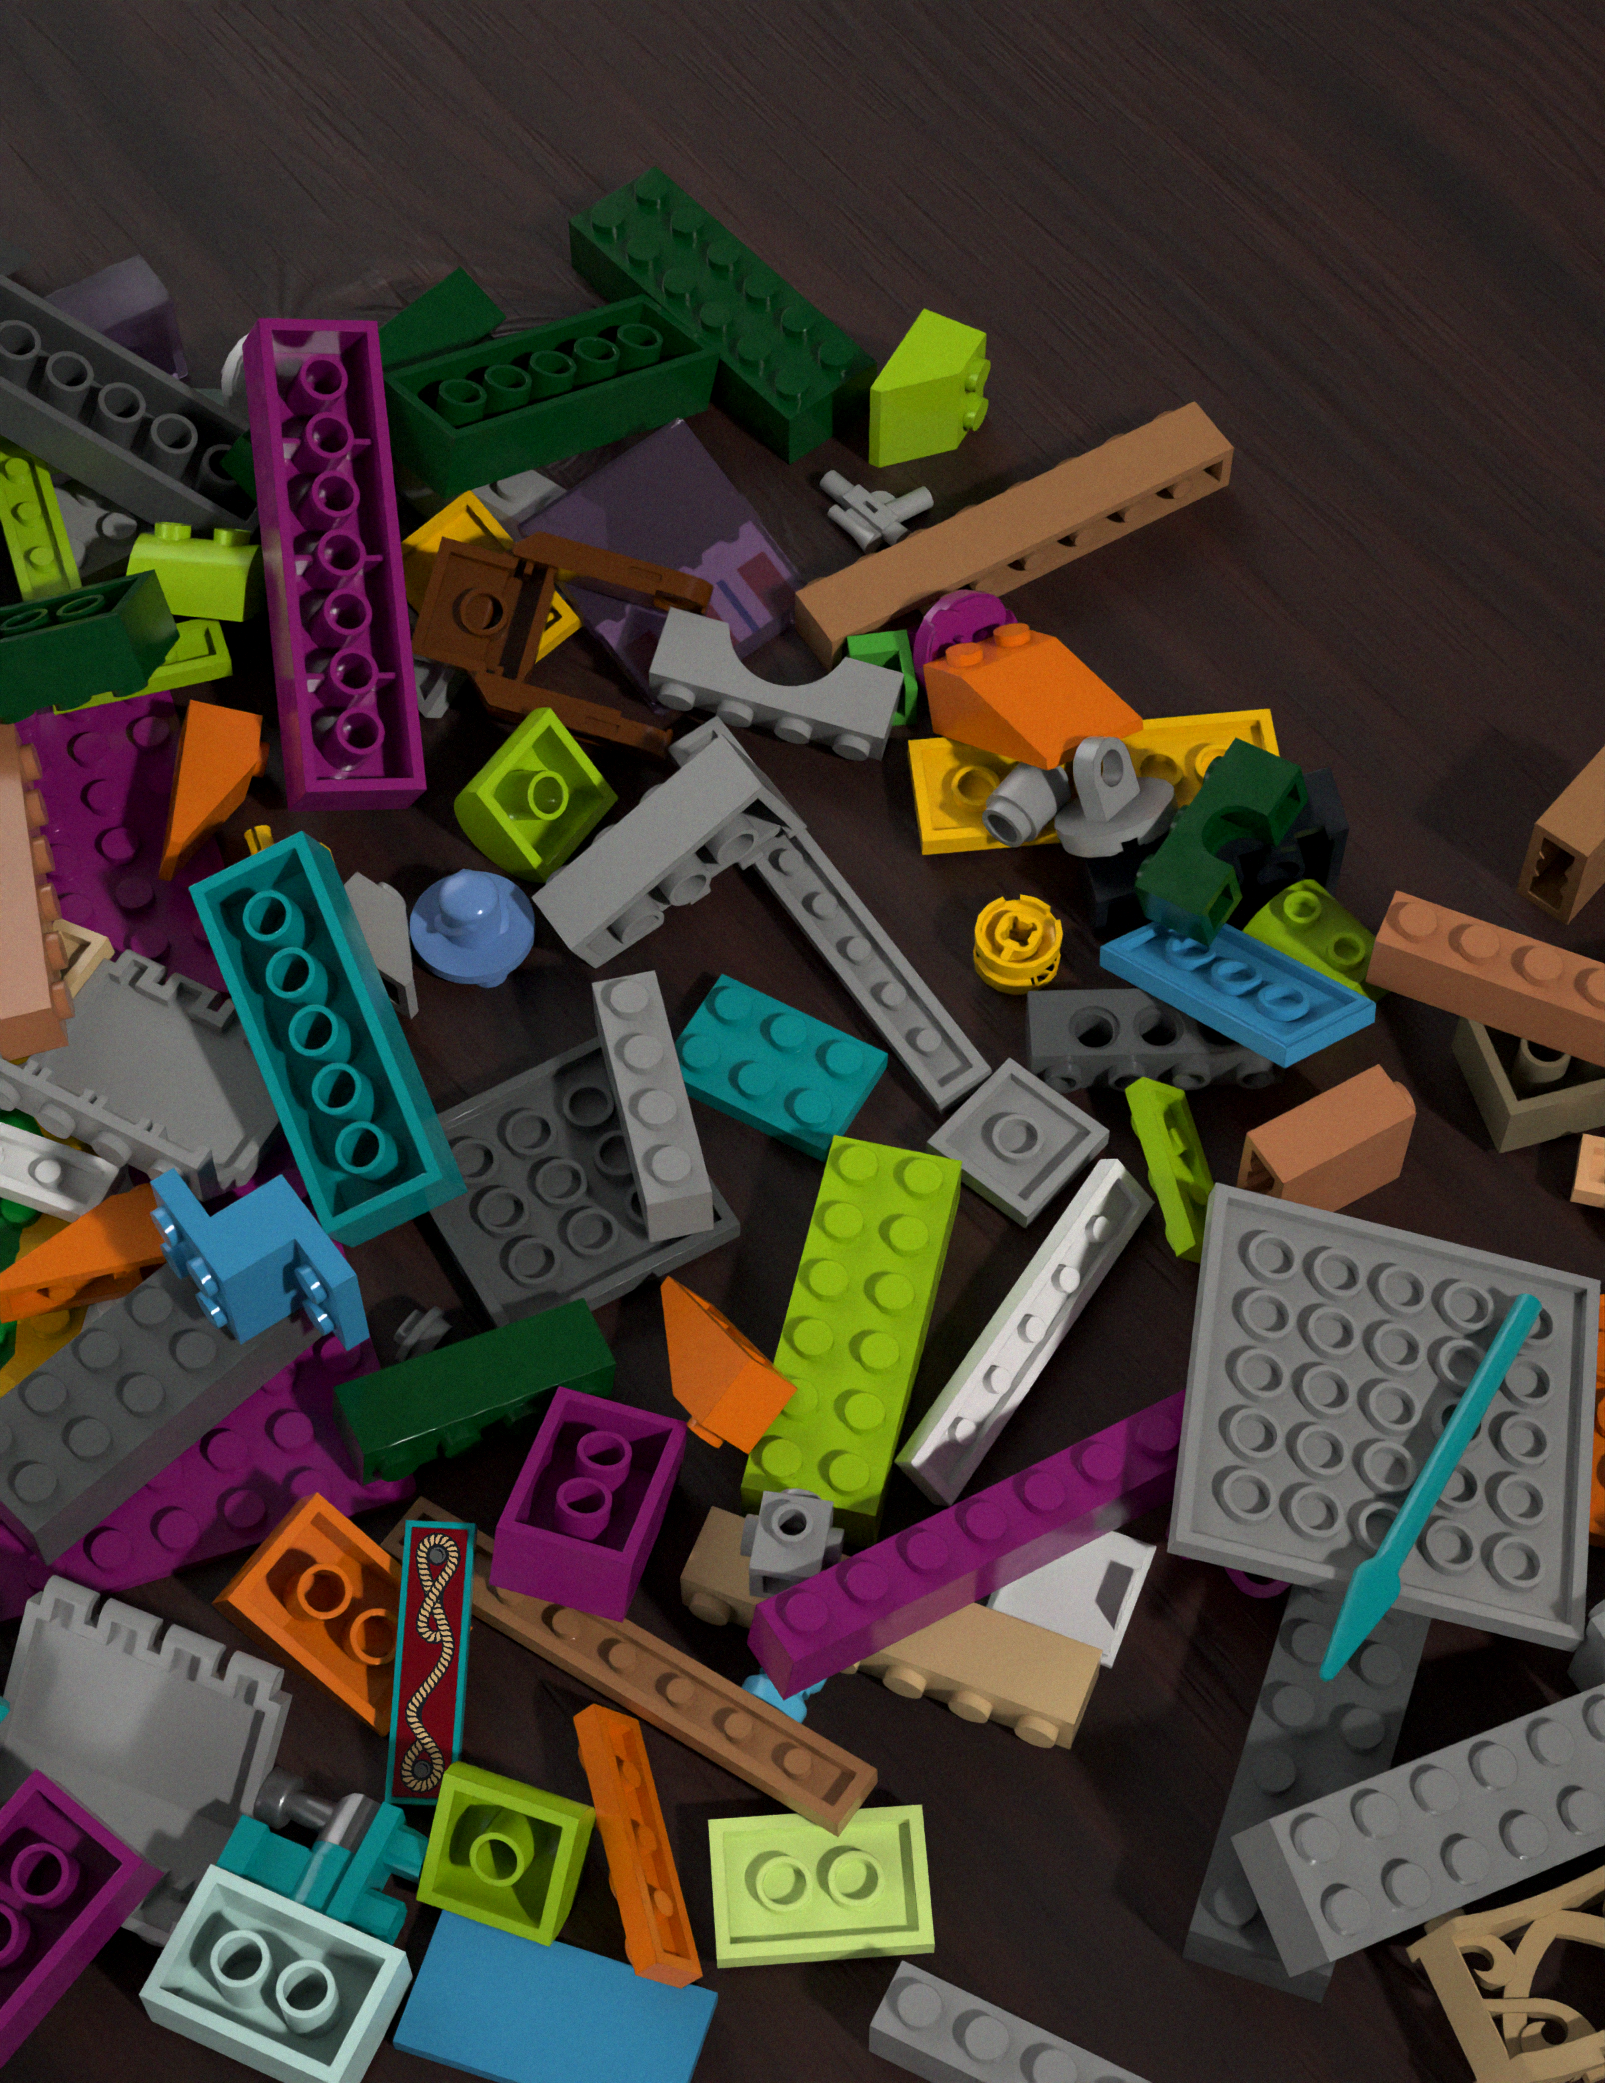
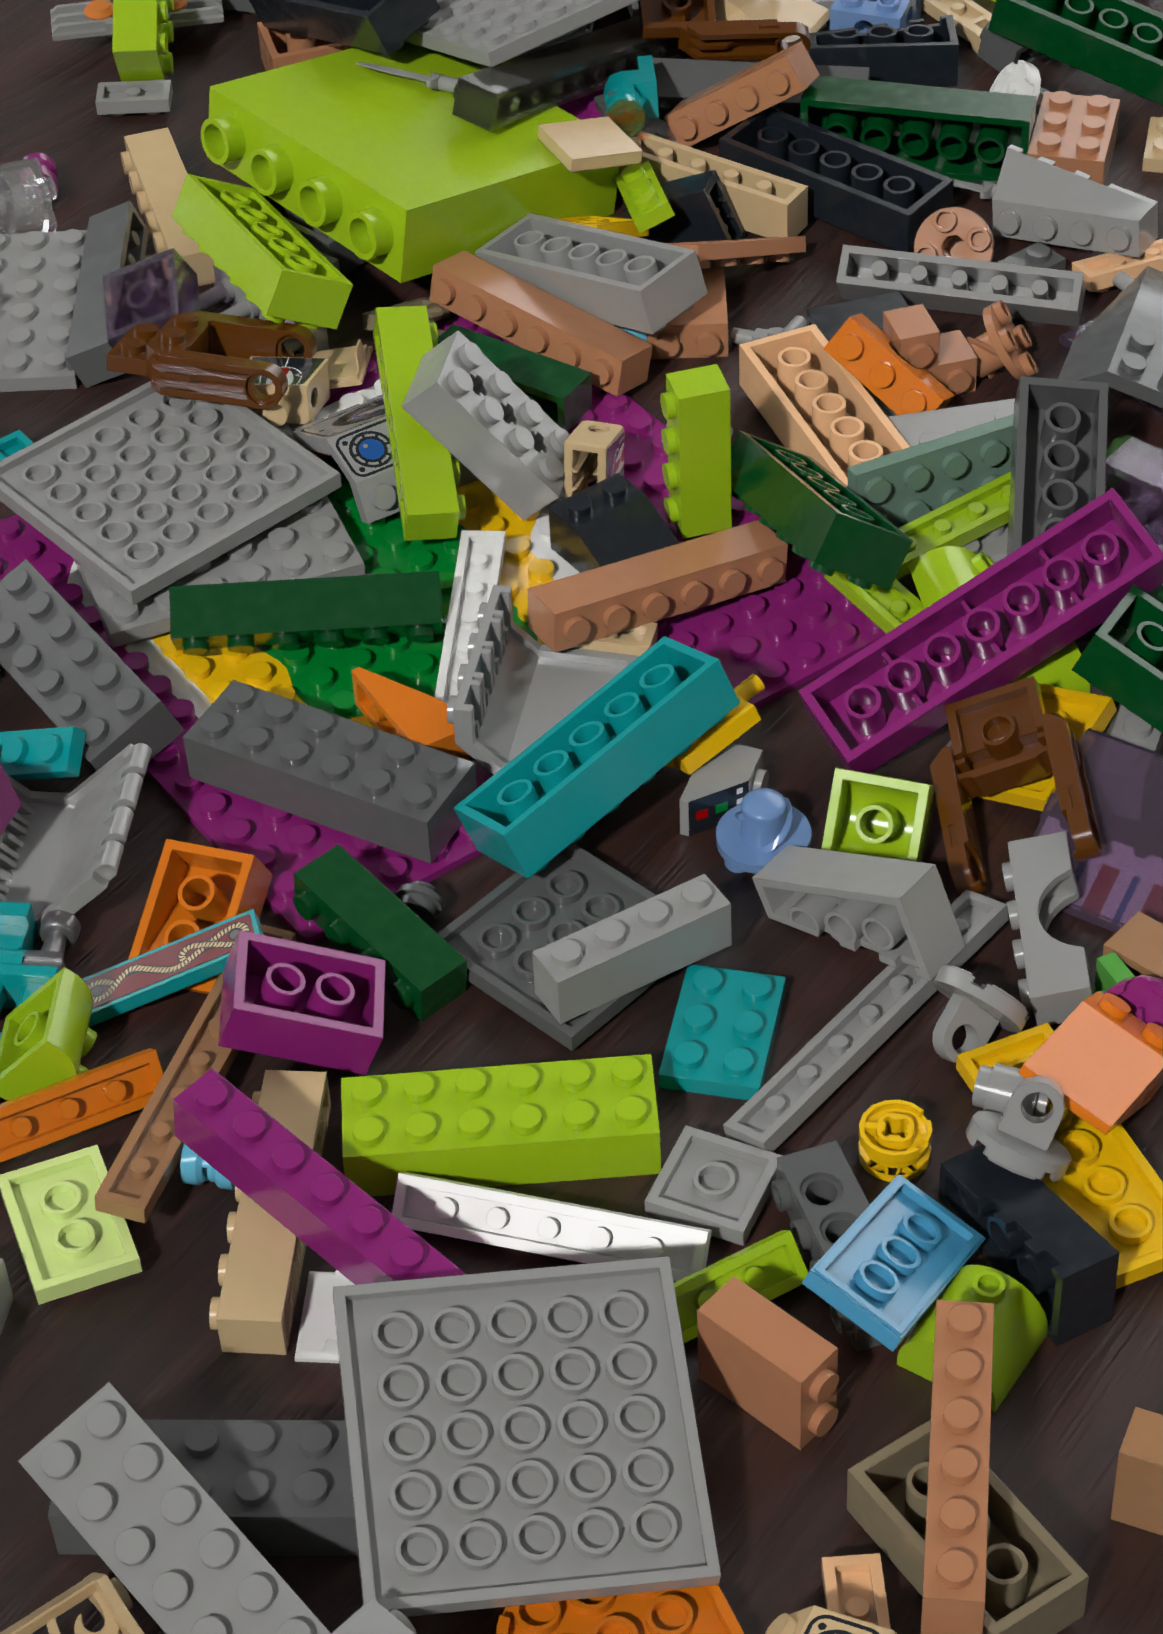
camera: 75 degrees right, 15 degrees down
(211, 777) = (791, 657): orange slope -> none
(258, 1260) = (386, 749): dark azure bracket -> none
(719, 1372) = (436, 1040): orange slope -> none
(789, 1540) = (293, 1098): light grey brick -> none
(876, 804) = (974, 1007): none -> light grey tile
(1241, 797) = (966, 1187): dark green arch -> none
(1376, 1580) = (348, 1433): teal piece -> none

